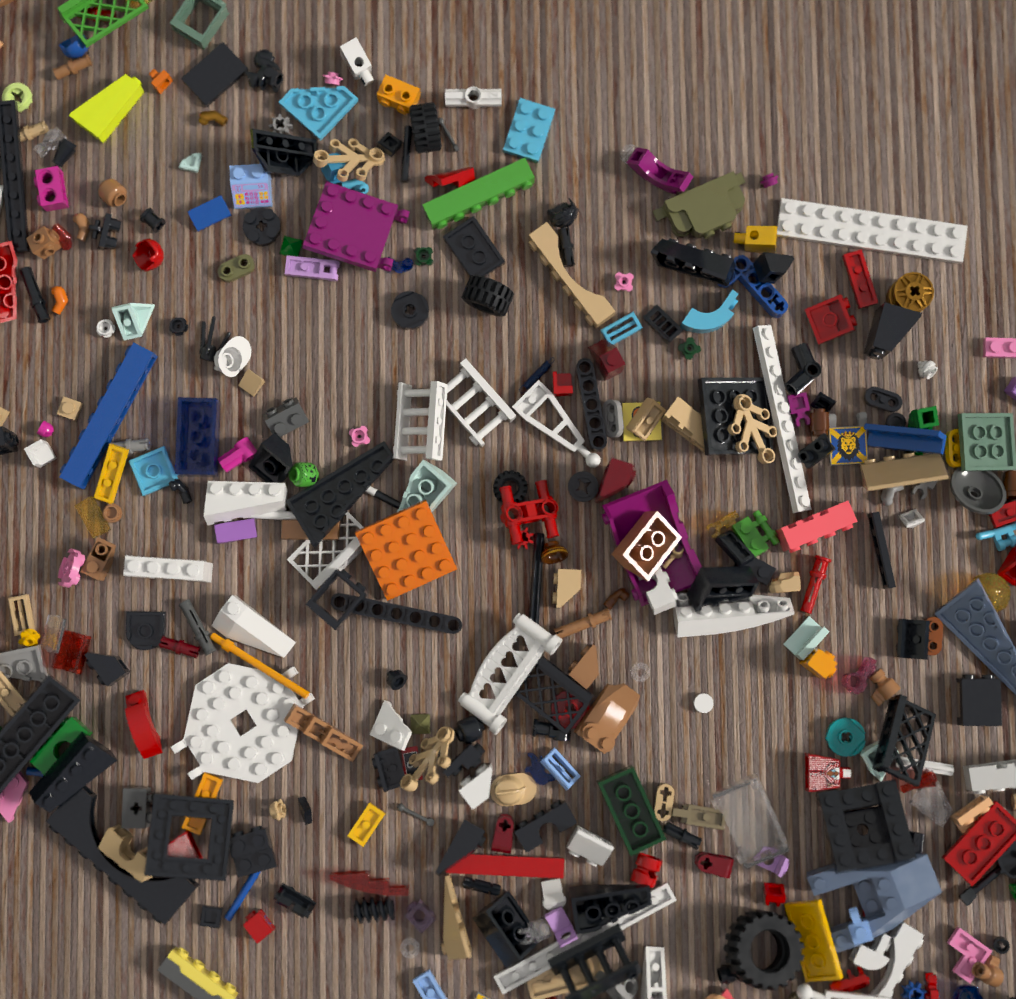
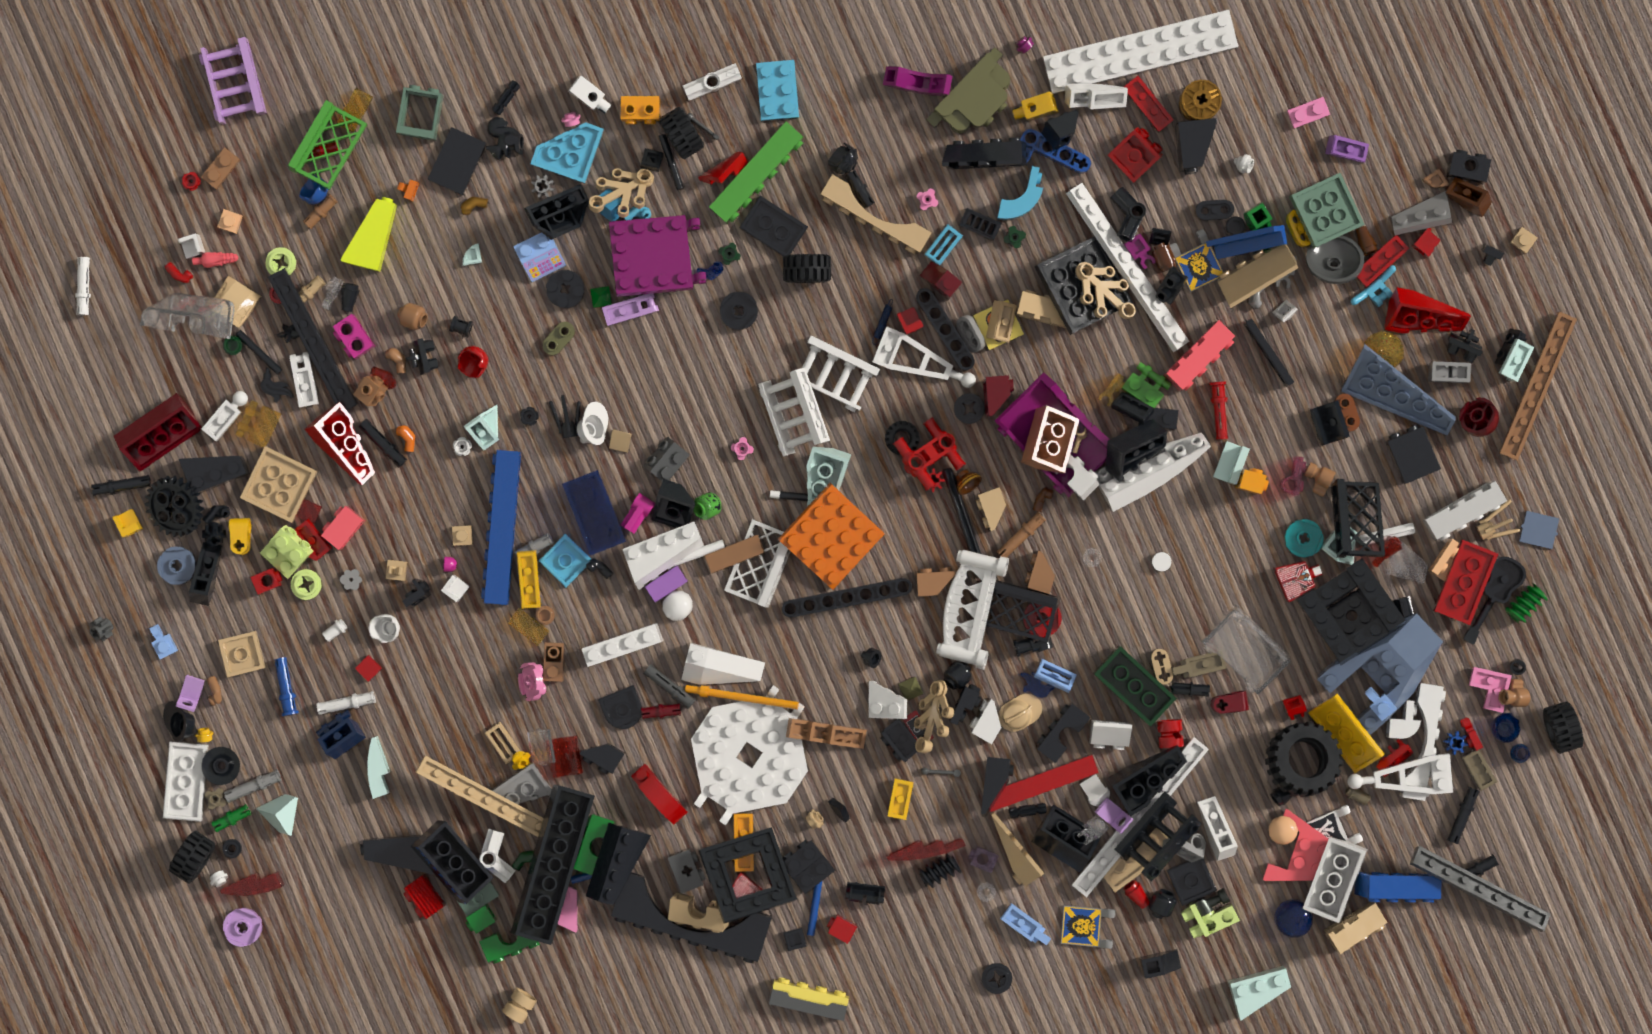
camera: 20 degrees left, 5 degrees up
(209, 213) = (511, 297): blue slope -> none
(237, 555) = (677, 605): none -> white hair
(283, 36) = (505, 97): none -> black axle
(326, 616) = (781, 625): black window -> none
(329, 499) = (741, 517): black wing -> none
(481, 633) = (932, 583): none -> medium nougat slope
(503, 836) = (1028, 759): dark red piece -> none
(608, 716) = (1079, 610): medium nougat slope -> none
(626, 152) = (879, 73): clear tile -> none
(779, 865) = (1289, 680): lavender bracket -> none
(785, 583) = (1191, 420): tan rock -> none
(815, 252) = (1095, 96): none -> white slope

